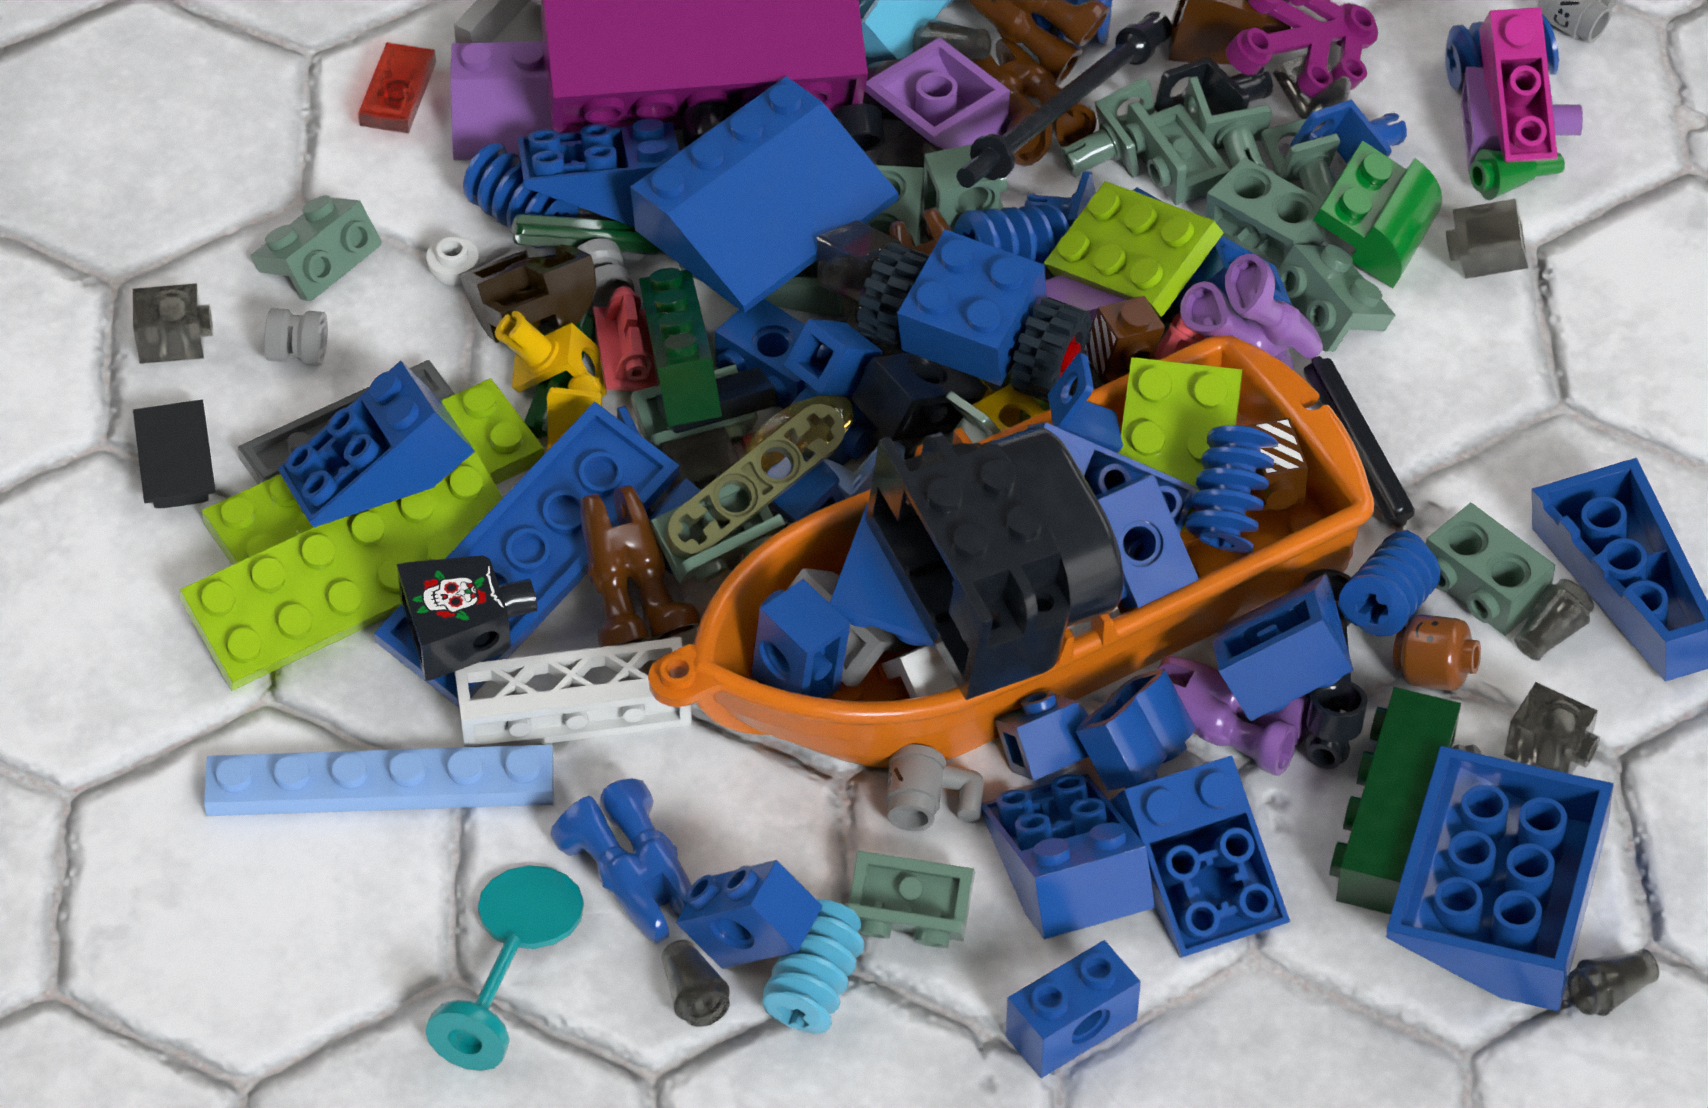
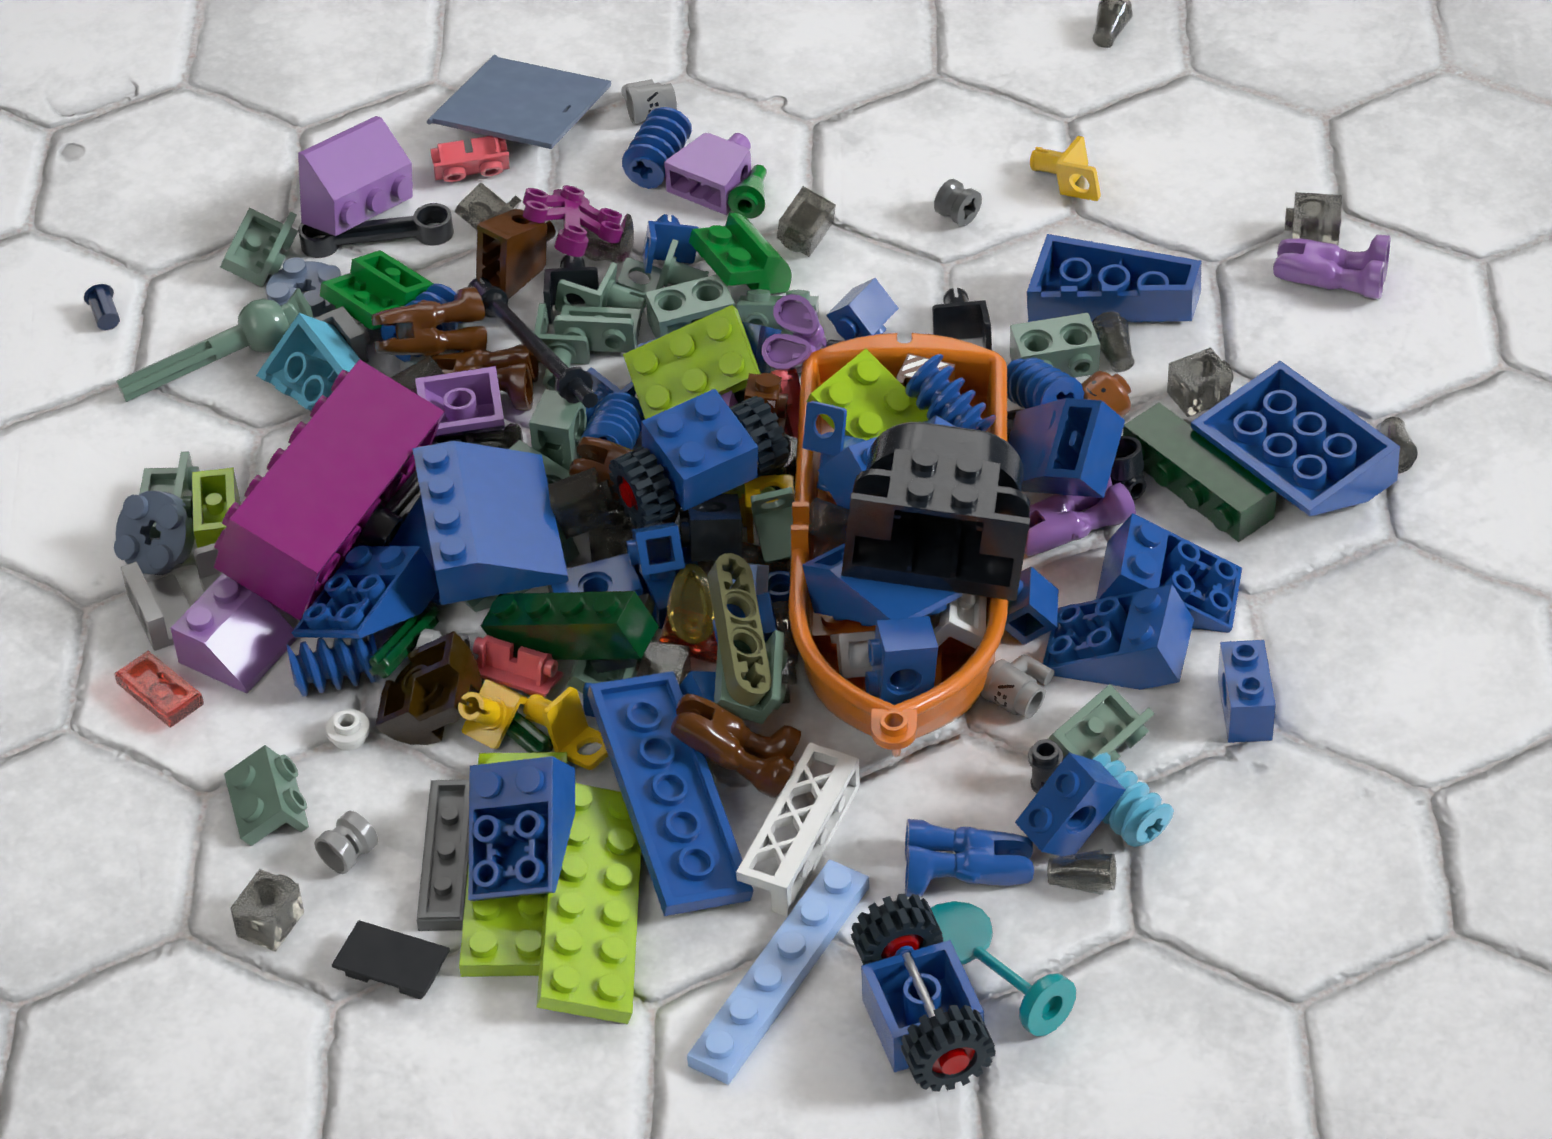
camera: 55 degrees left, 5 degrees down
(388, 911) = (920, 995): none -> brick
(459, 611) = (703, 842): black torso -> none
(814, 863) = (1044, 759): none -> black pin
(1136, 730) = (1063, 557): blue brick -> none
(1385, 364) = (862, 311): none -> brick
(1464, 462) = (962, 318): none -> black bracket
(1519, 83) = (710, 140): dark pink slope -> none
(1657, 360) = (957, 202): none -> dark grey wheel

